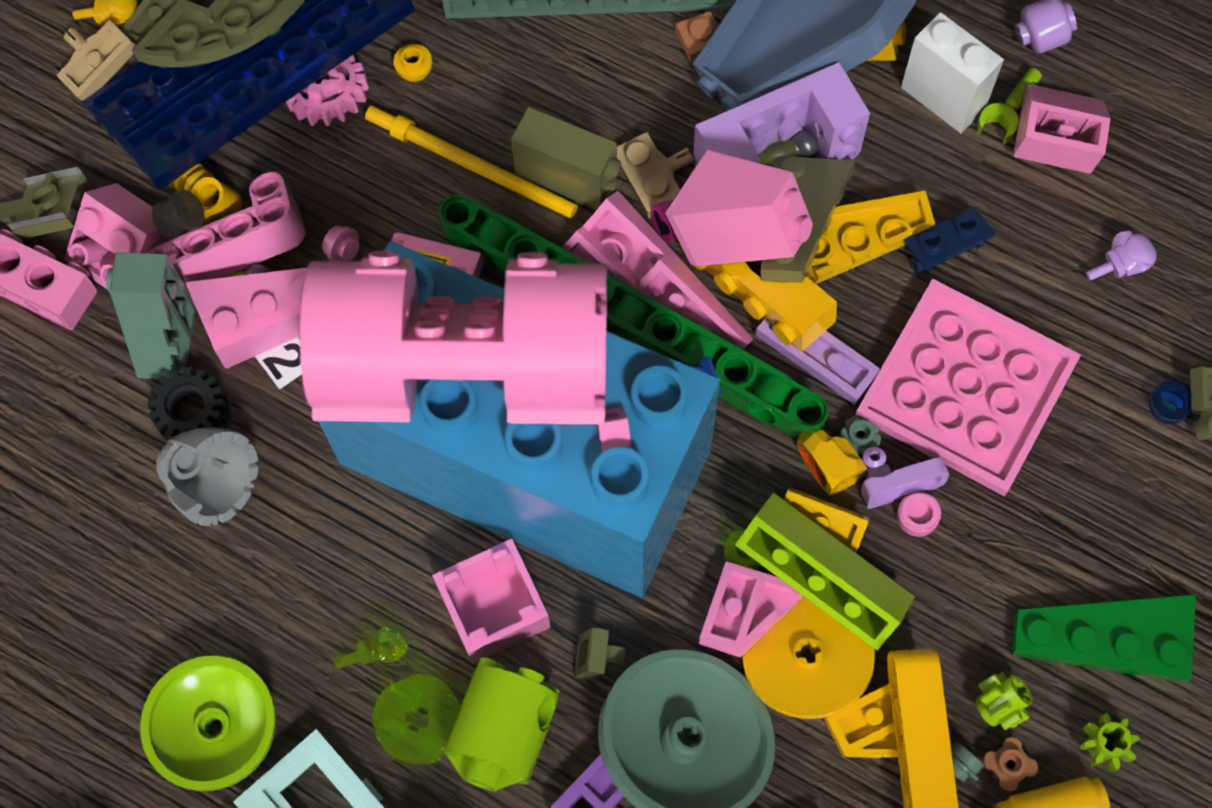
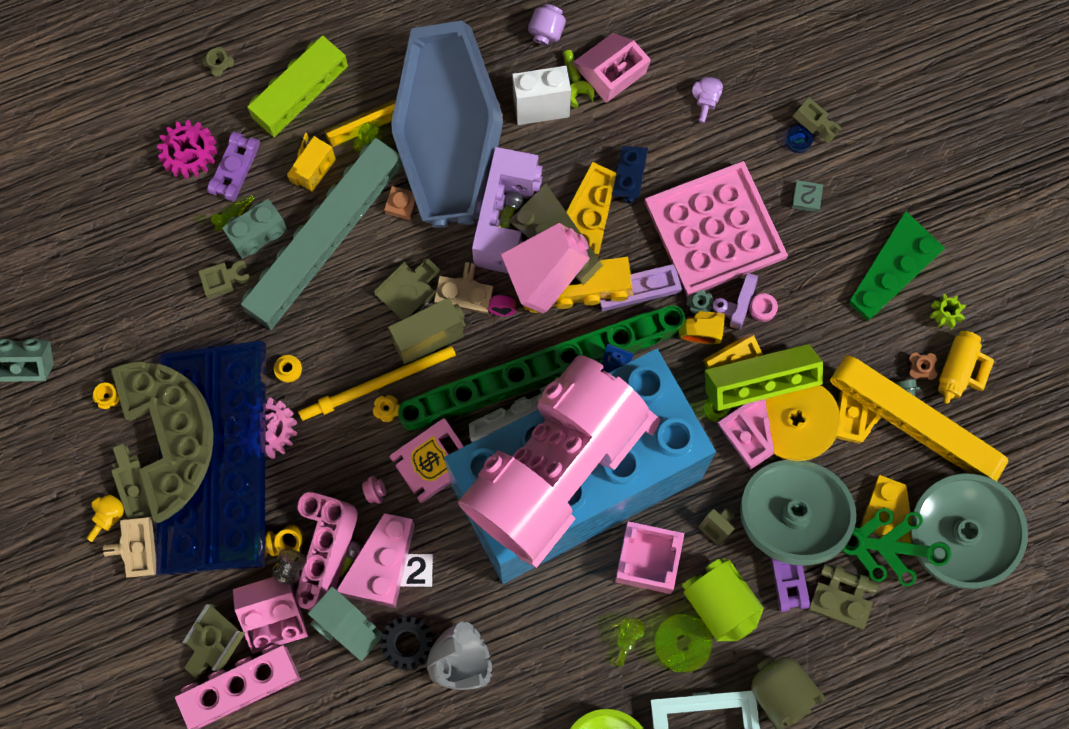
camera: 55 degrees left, 5 degrees up
(447, 180) = (391, 413): none -> yellow plate
(609, 110) = (407, 290): none -> olive piece
(646, 263) = (505, 339): bright pink wedge -> none
(1004, 700) = (891, 344): lime gear -> none
(1106, 463) = (807, 196): none -> sand green tile

